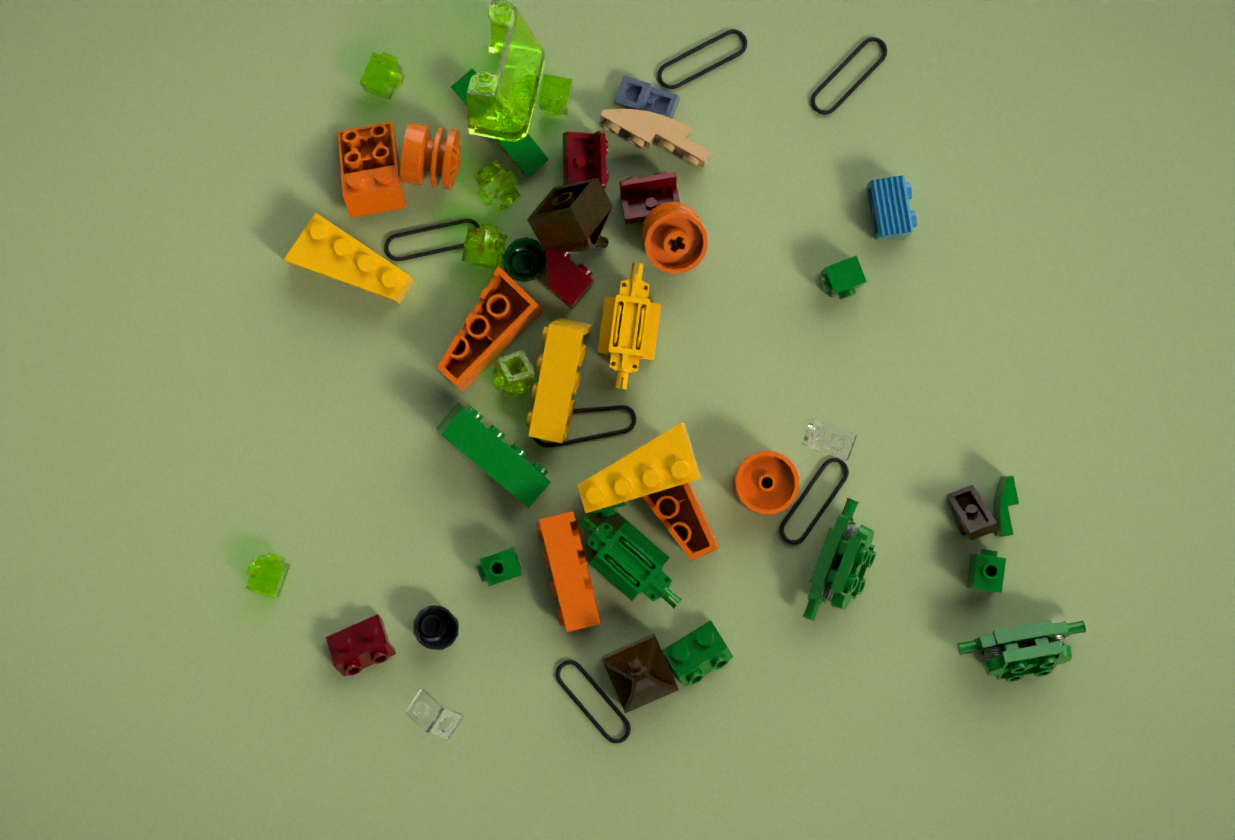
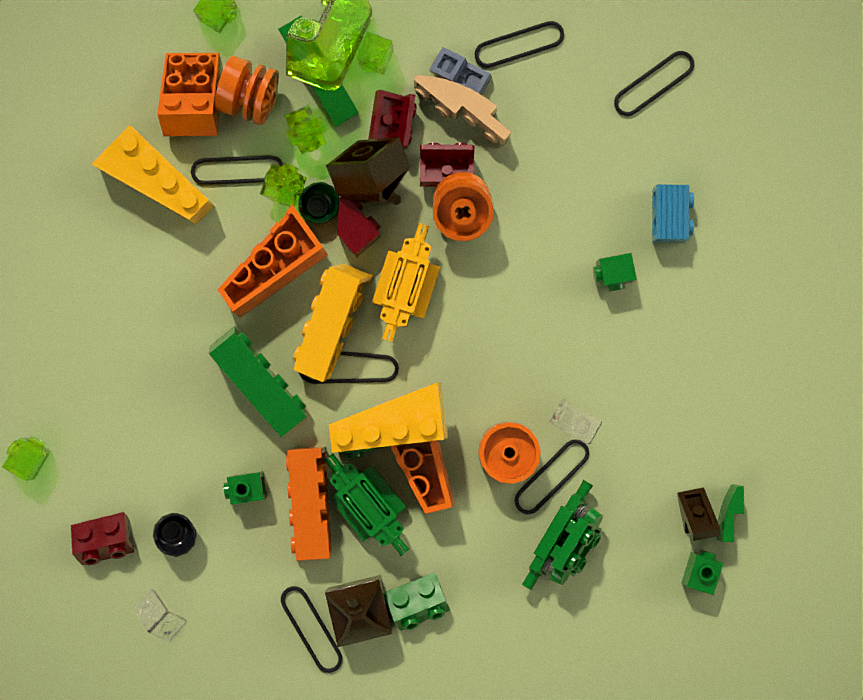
camera: 10 degrees right, 0 degrees up
(513, 374) = (289, 309): clear neon green brick -> none
(1024, 649) = (737, 663): green piece -> none

